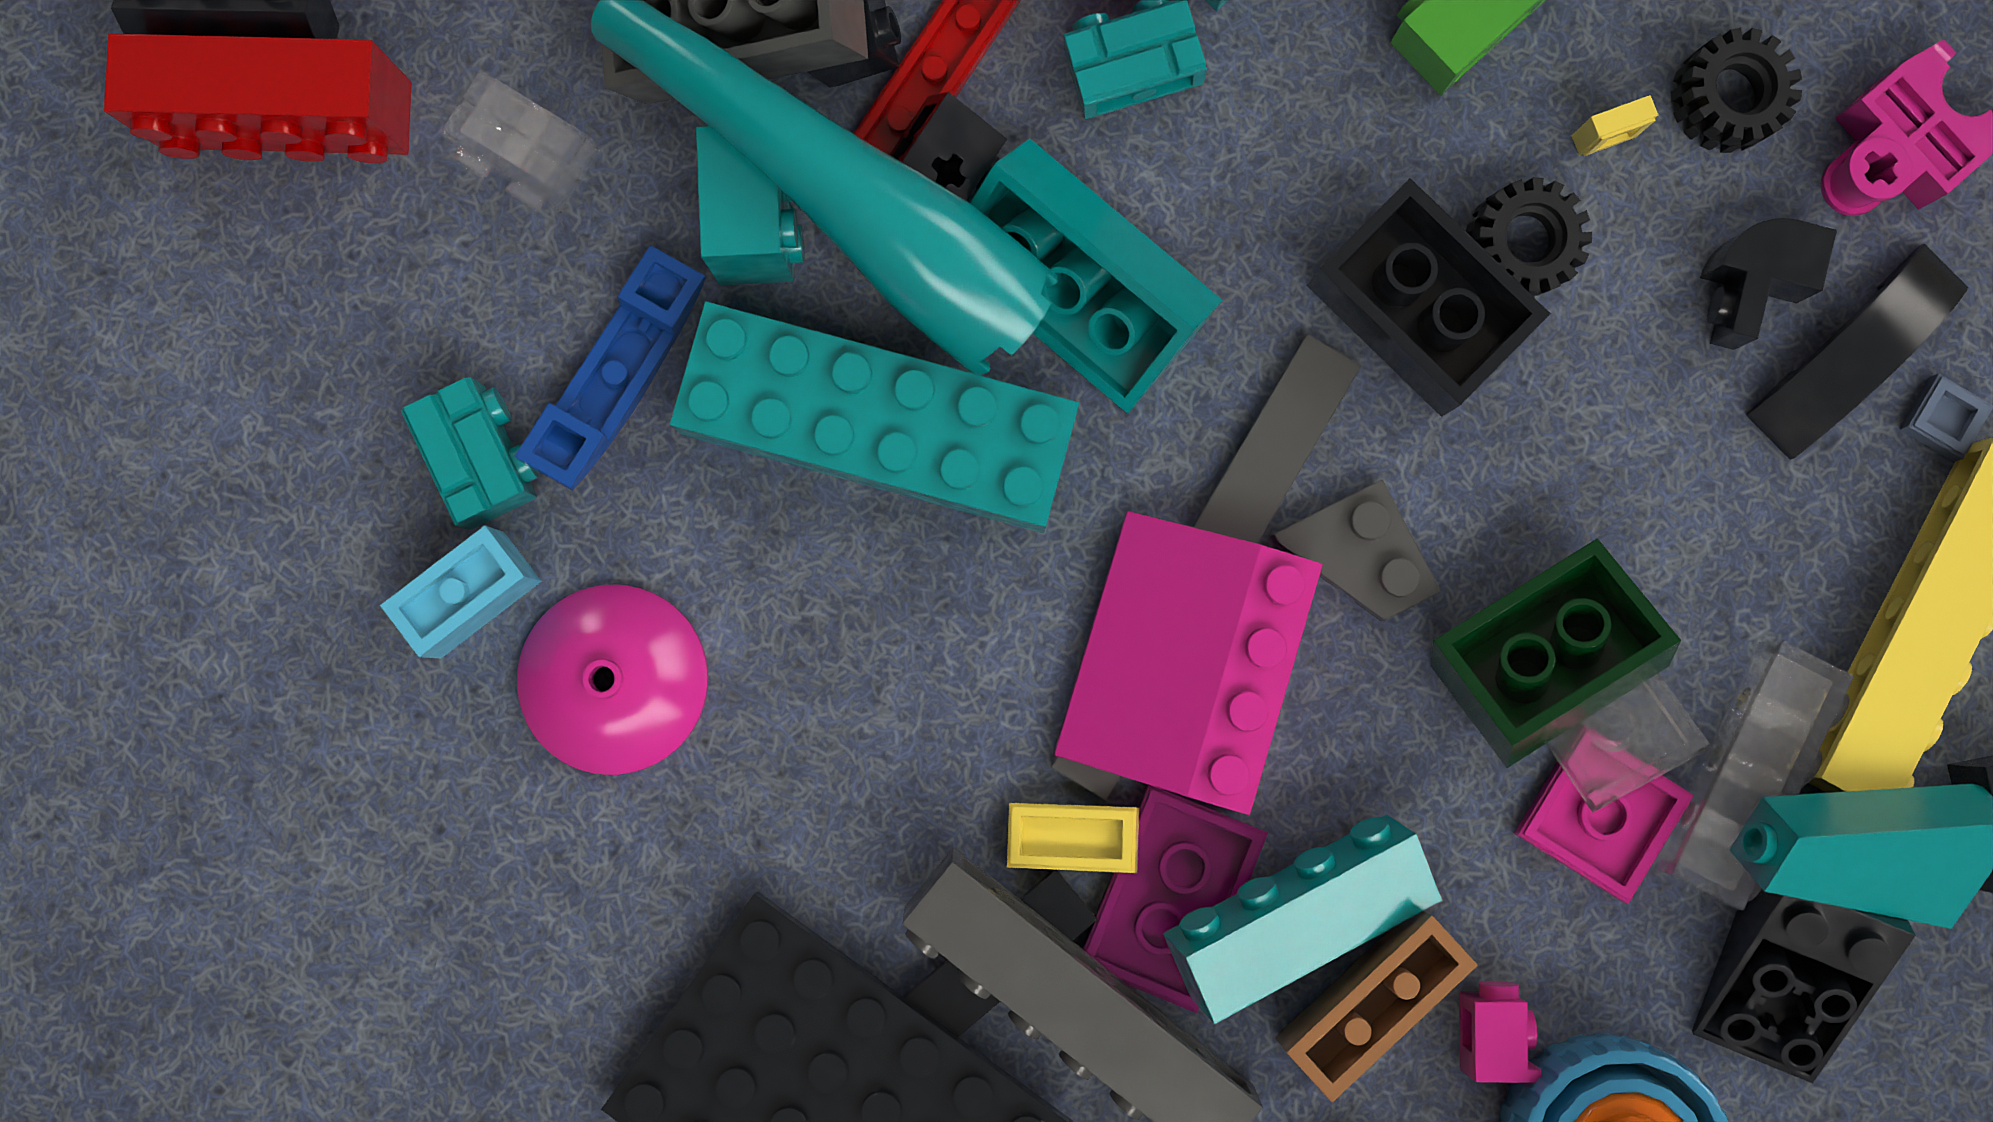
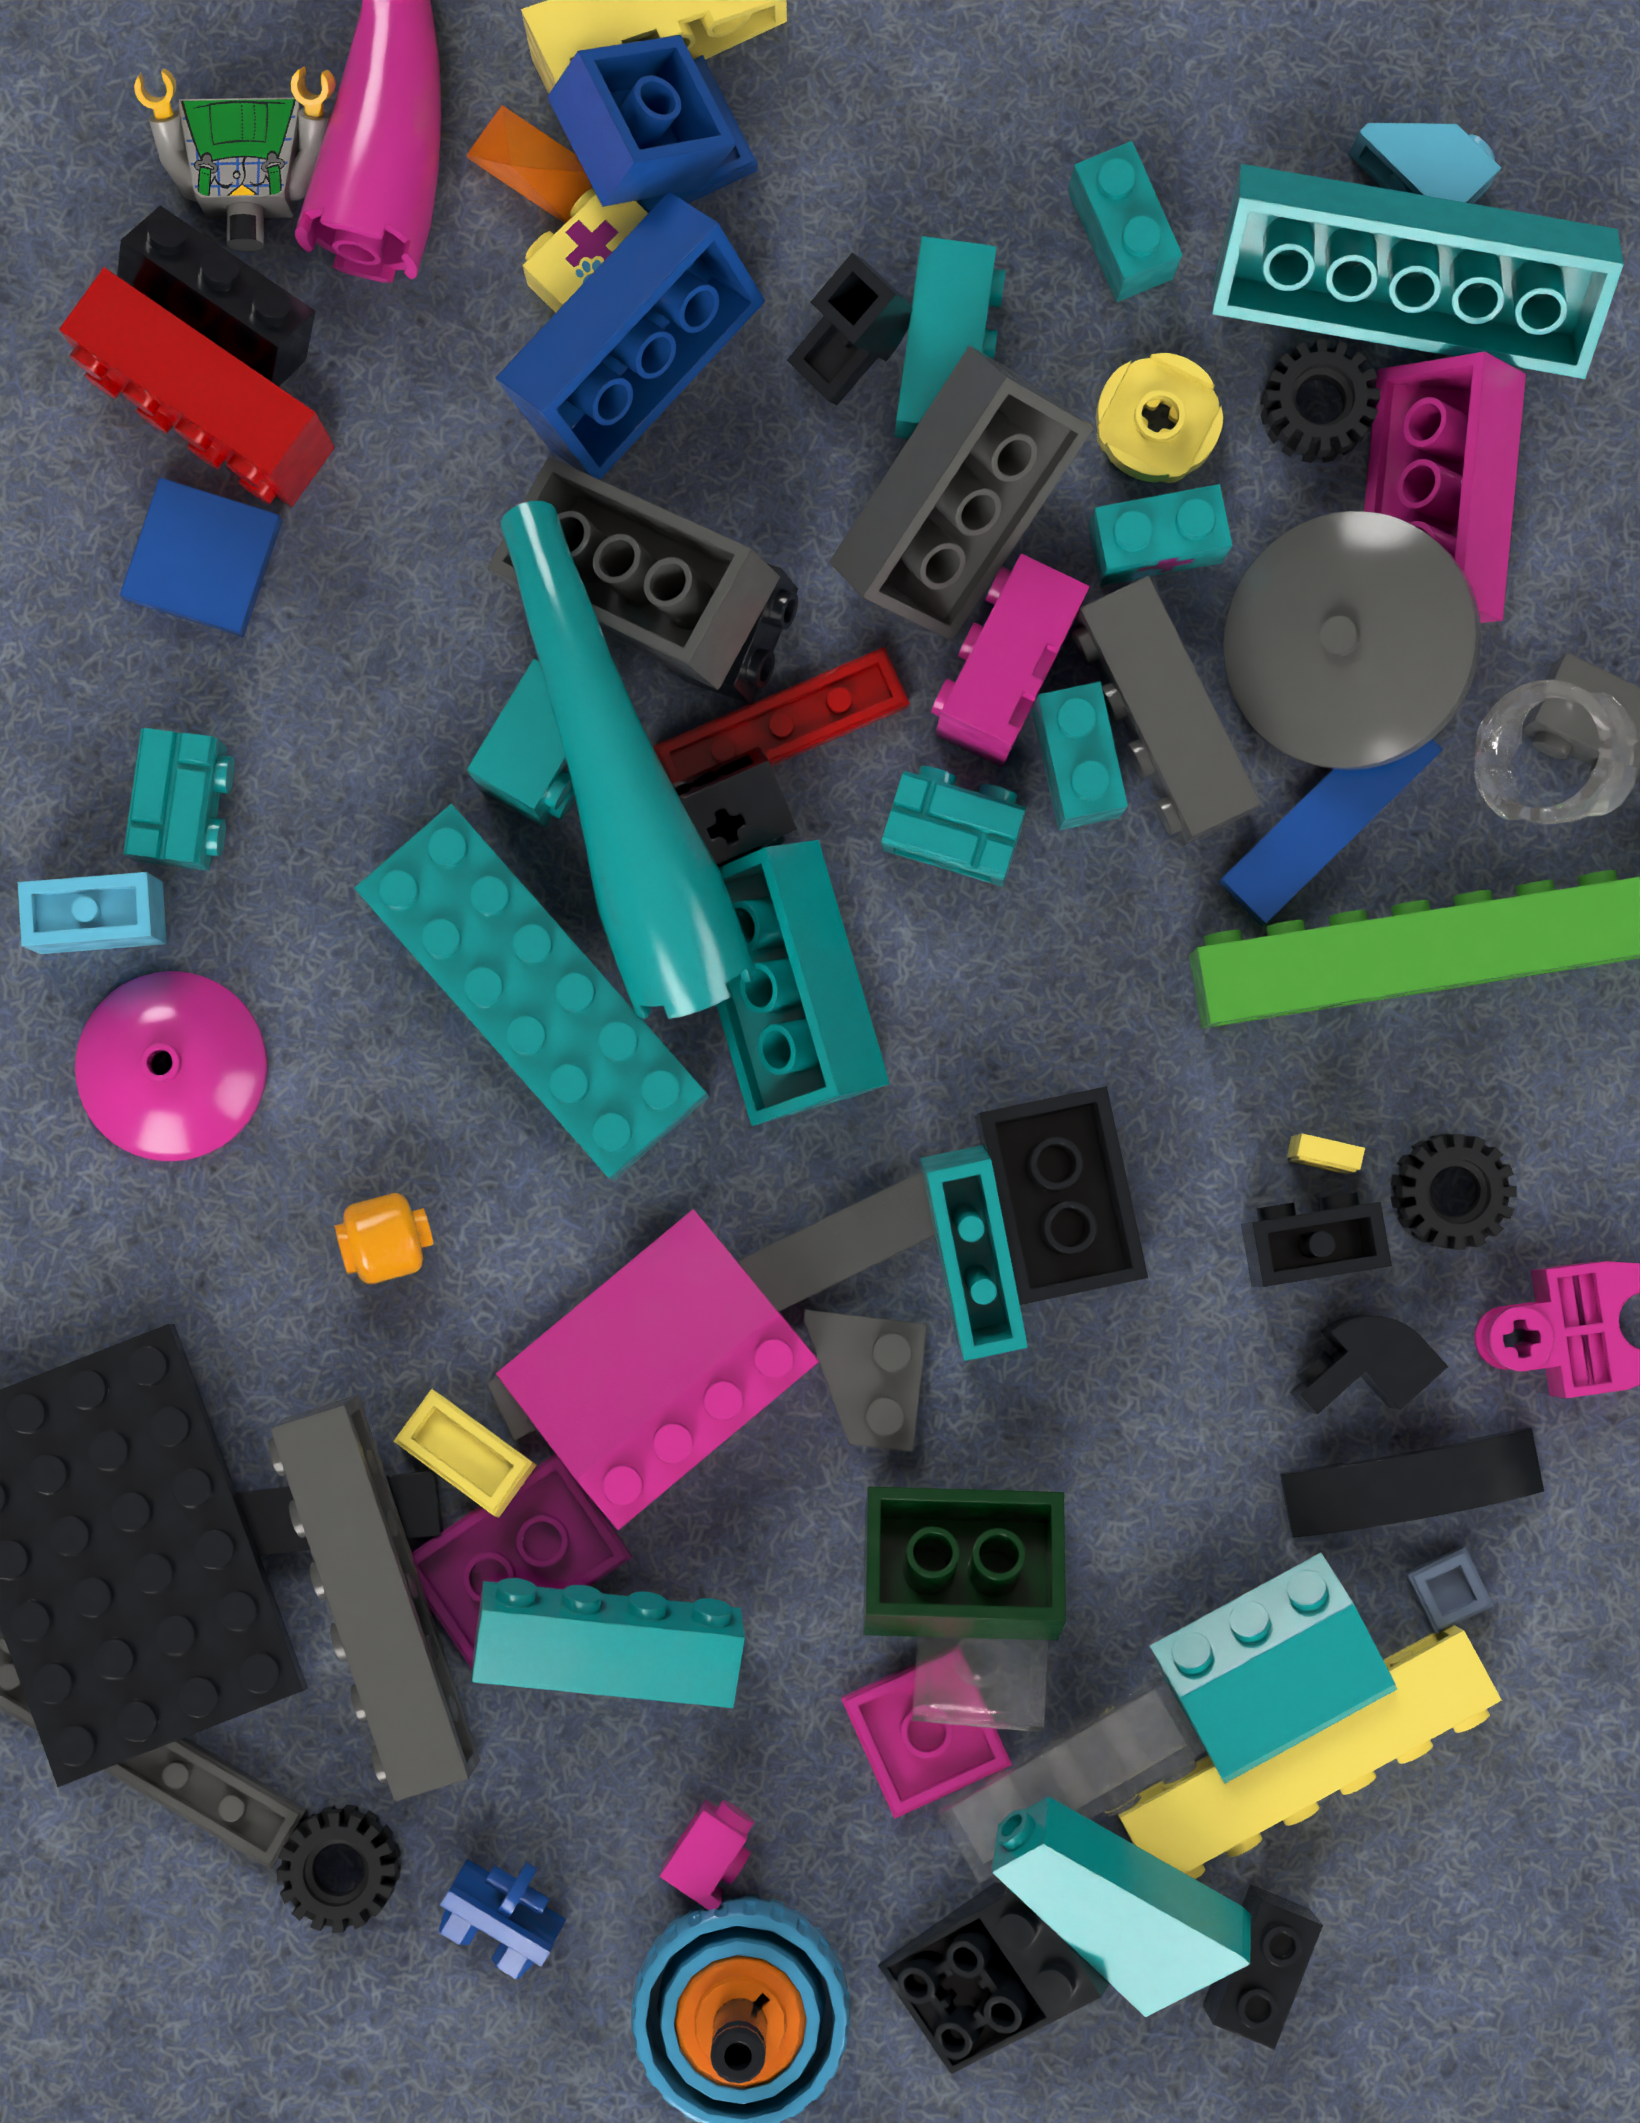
camera: 30 degrees right, 0 degrees up
(358, 242) = (201, 557): none -> blue tile
(519, 142) = (389, 564): clear brick -> none
(616, 371) = (341, 809): blue slope -> none
(886, 704) = (383, 1238): none -> light orange head
(1375, 1003) = (620, 1756): medium nougat brick -> none
(1388, 390) = (973, 1252): none -> teal brick
(1553, 212) = (1226, 1207): black tyre -> none
(1667, 196) = (1315, 1244): none -> black brick
(1863, 569) = (1273, 1667): none -> teal slope

